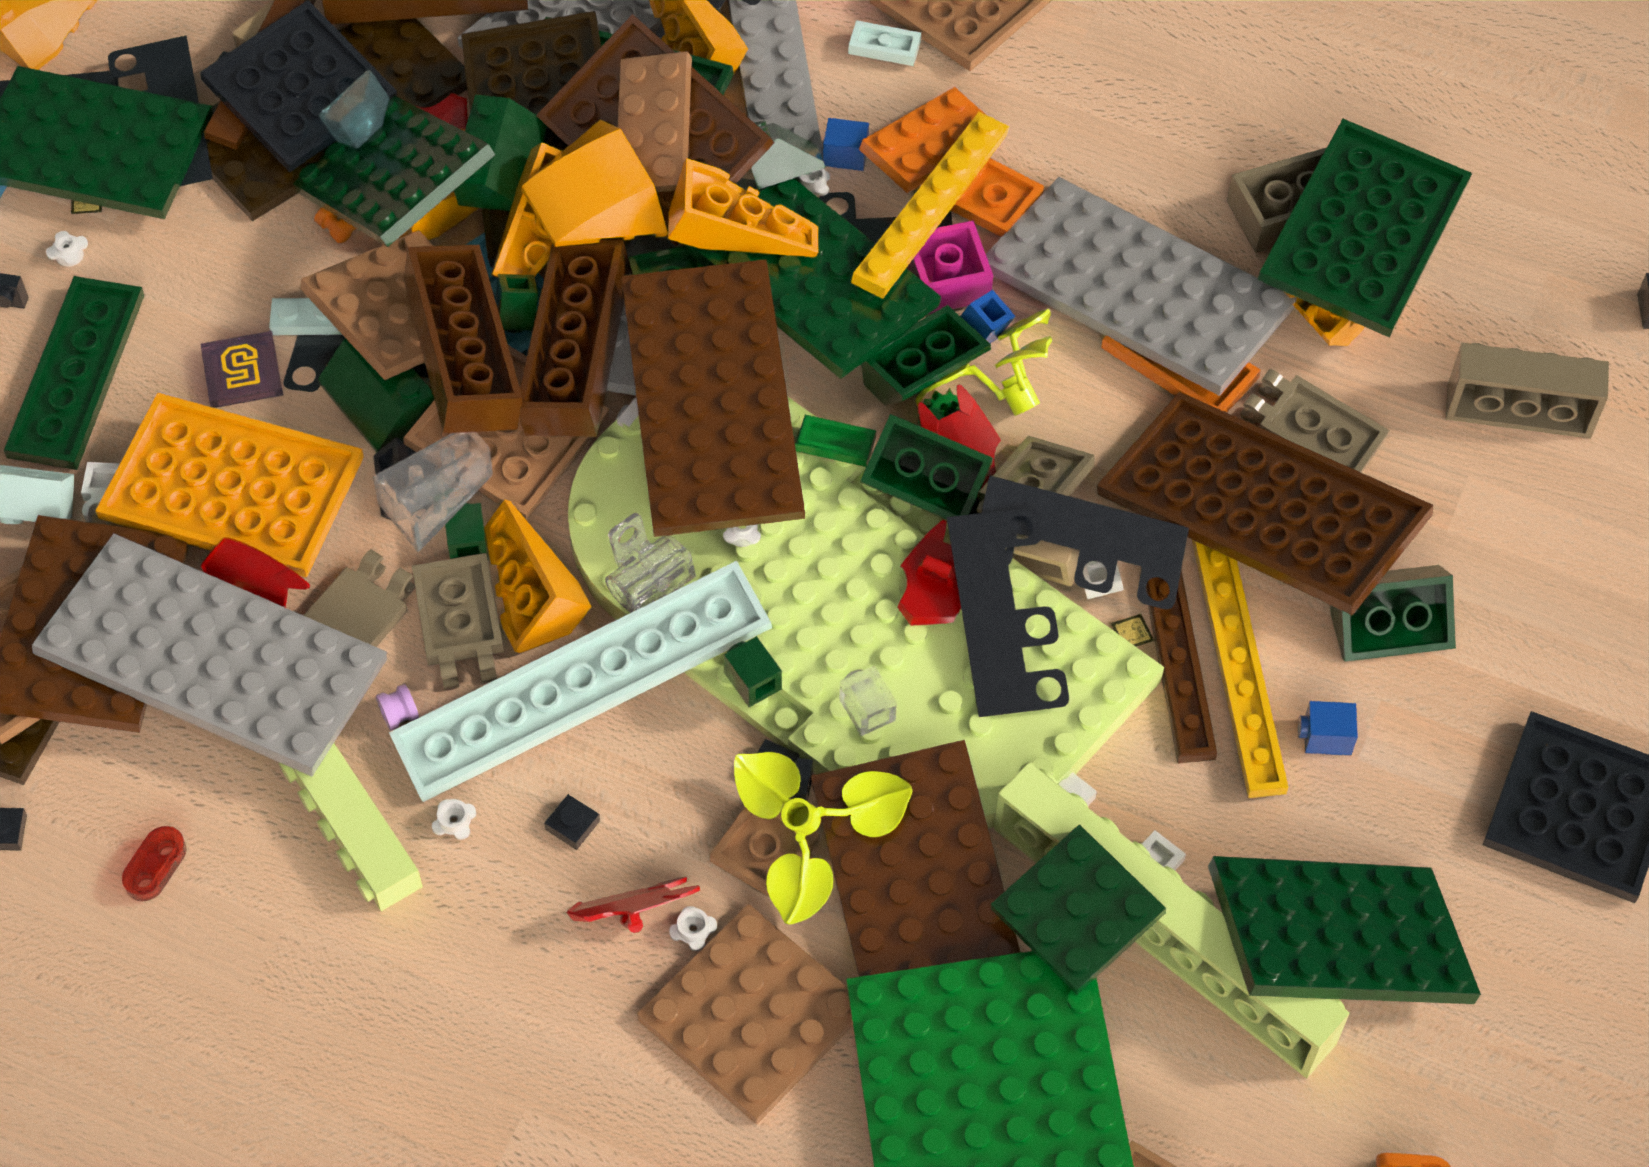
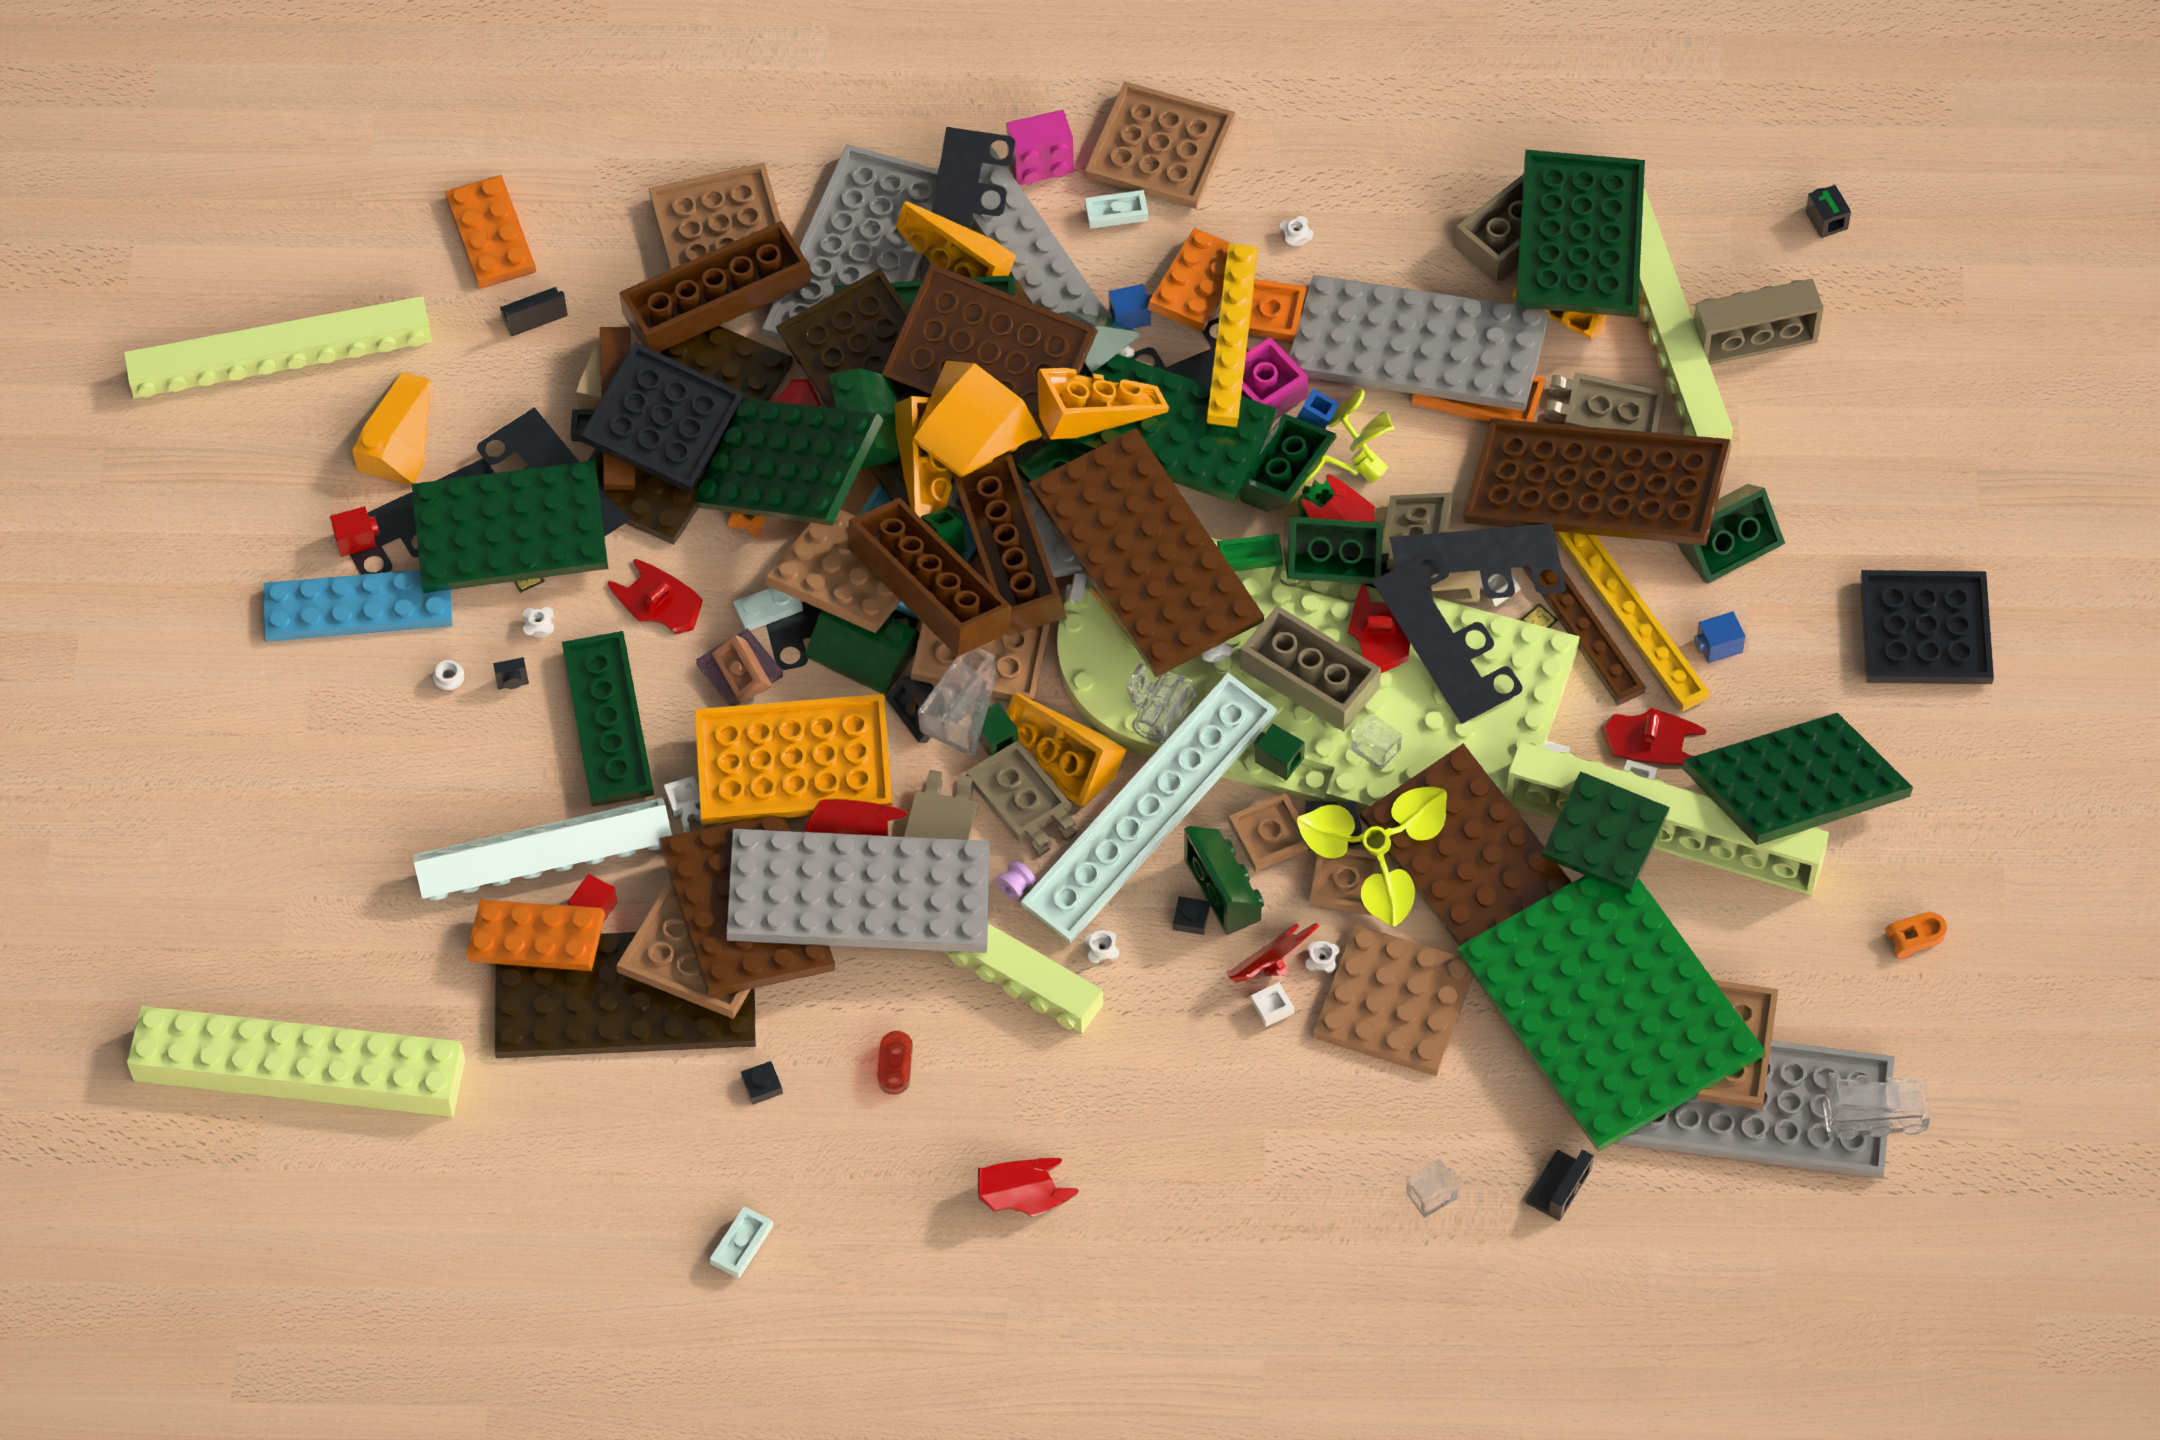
camera: 20 degrees left, 0 degrees up
(204, 270) = (659, 598): none -> red shield
(206, 1067) = (1022, 1186): none -> red shield
(239, 369) = (741, 668): none -> nougat slope
(357, 111) = (728, 424): clear light blue slope -> none
(606, 962) = (1272, 1004): none -> white plate
(623, 791) = (1222, 878): none -> dark green slope
(657, 113) = (989, 338): medium nougat plate -> none
(704, 758) = (1269, 832): none -> medium nougat plate
(832, 590) = (1310, 668): none -> dark tan brick
(1063, 128) = (1296, 238): none -> white plate
(1196, 813) = (1649, 737): none -> red shield
(1428, 375) = (1676, 338): none -> yellowish green brick

